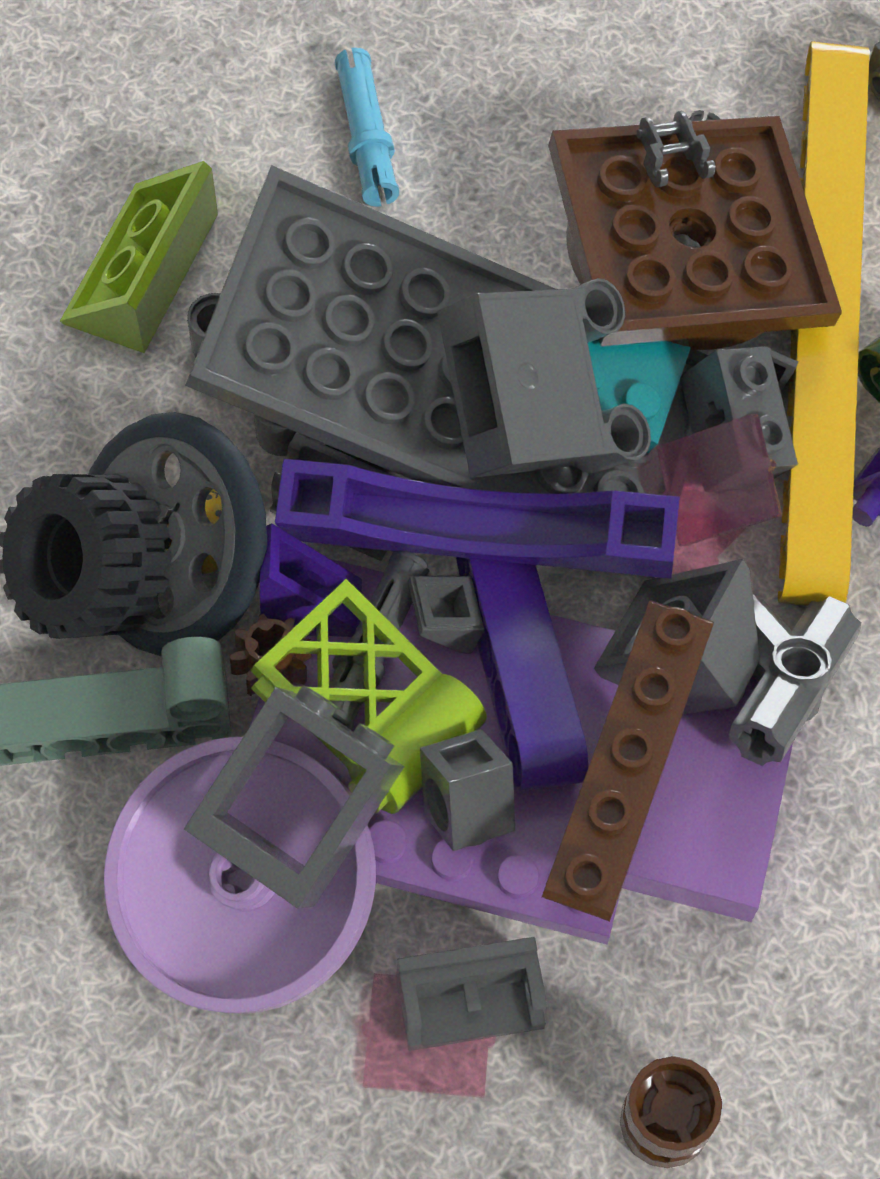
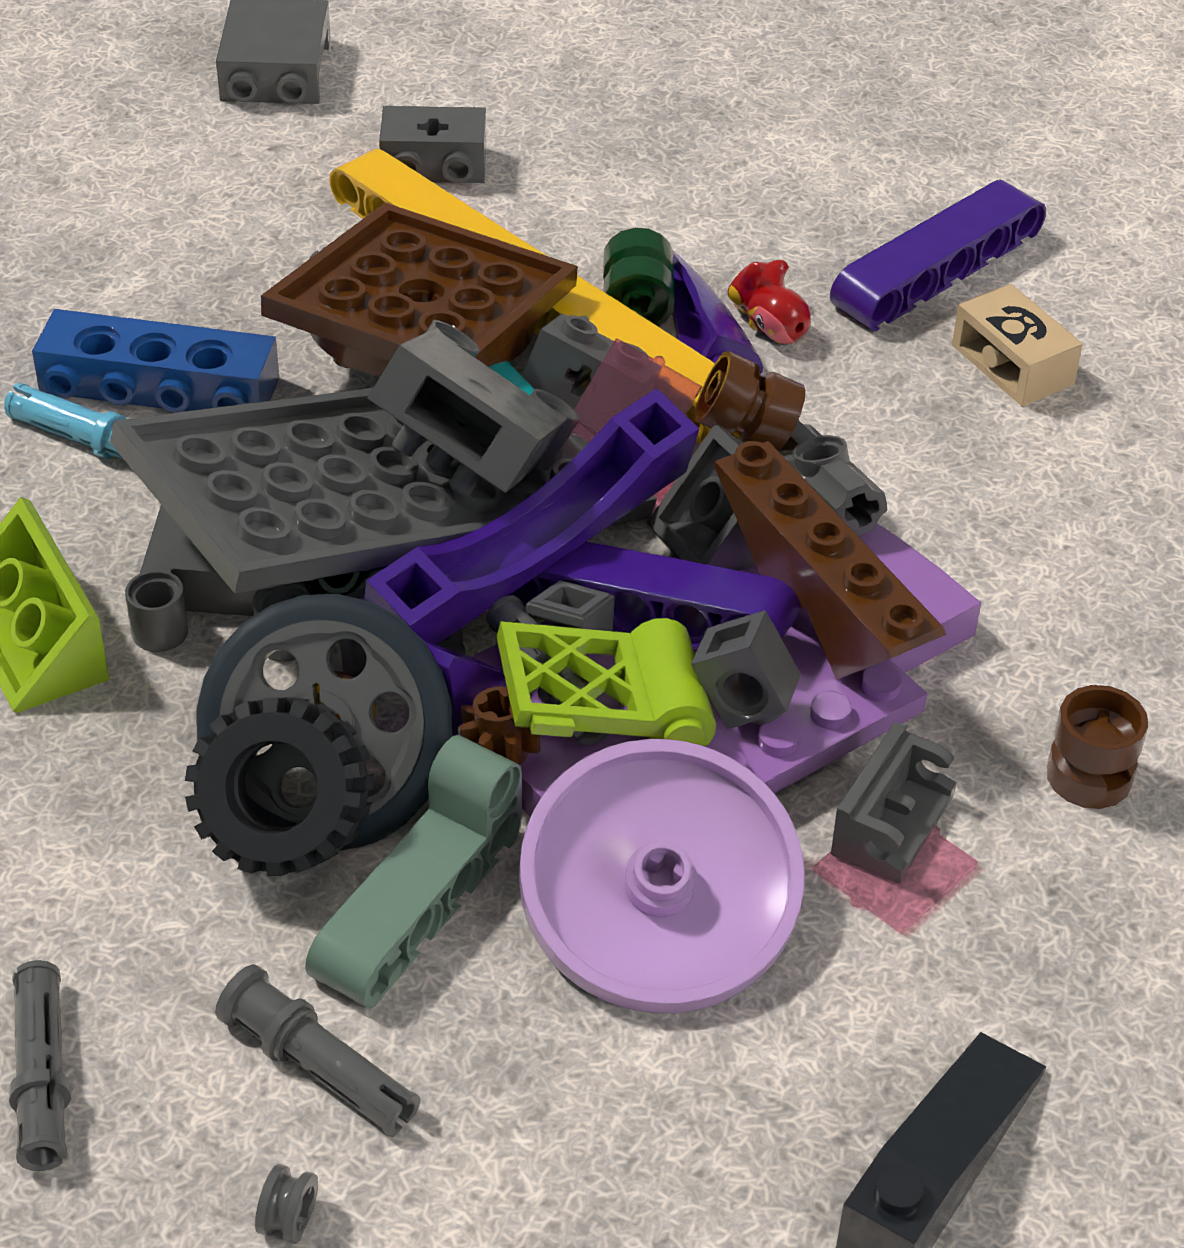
camera: 50 degrees left, 20 degrees down
(252, 852) = (672, 821): dark grey window -> none
(469, 116) = (153, 362): none -> blue brick
(694, 147) = (351, 244): dark grey piece -> none
(797, 566) = (747, 402): none -> reddish brown wheel

